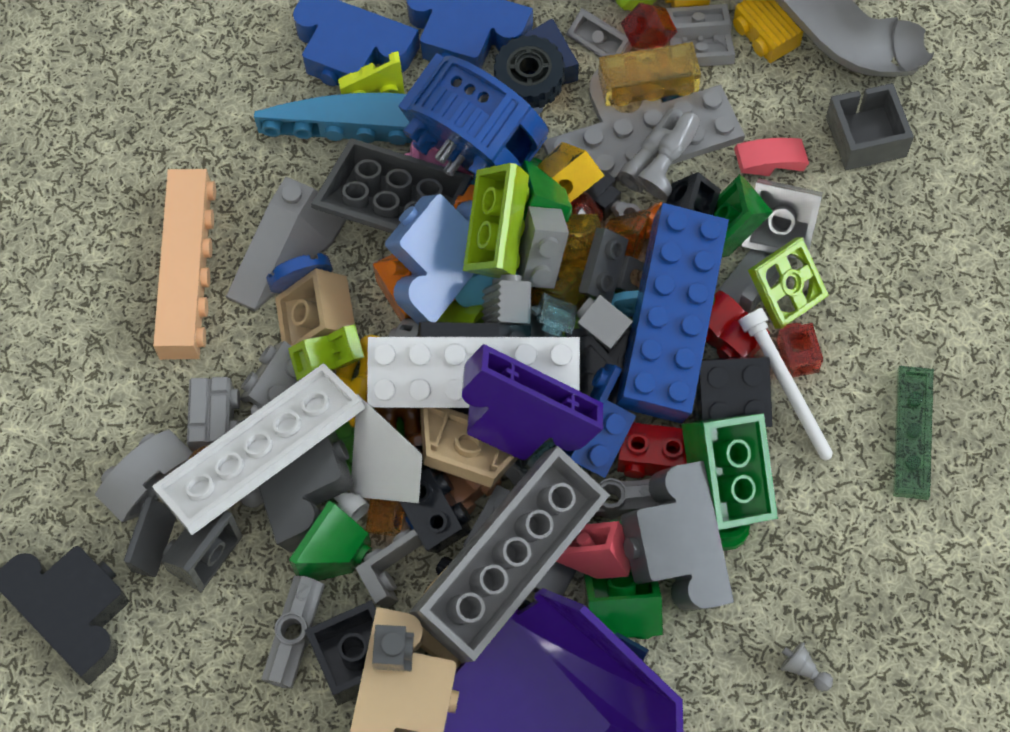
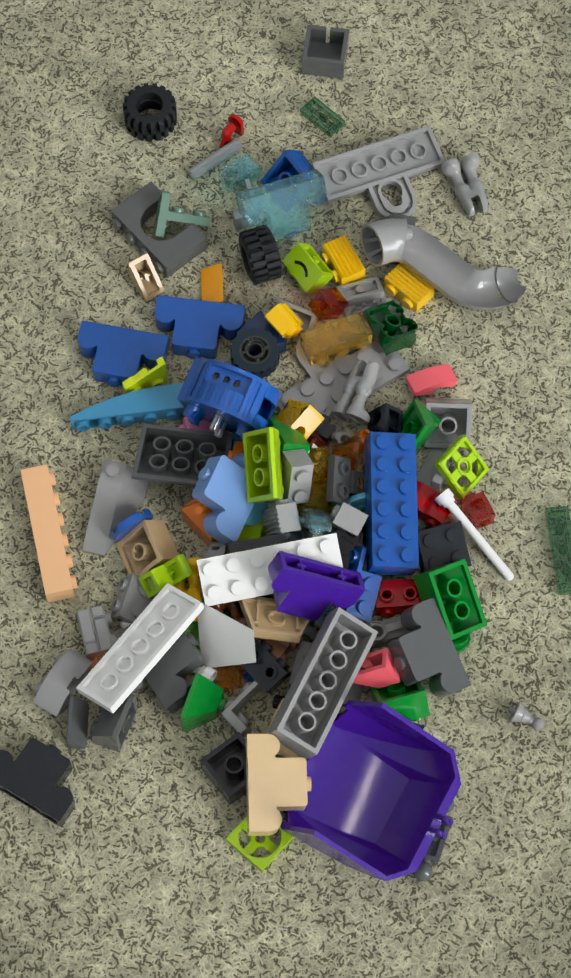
camera: 15 degrees left, 0 degrees up
(287, 654) = (189, 778): light grey piece -> none
(392, 648) = (264, 757): dark grey brick -> none
(581, 36) = (284, 320): none -> yellow brick
(730, 73) = (391, 326): none -> dark green slope
(873, 134) = (495, 351): dark grey piece -> none

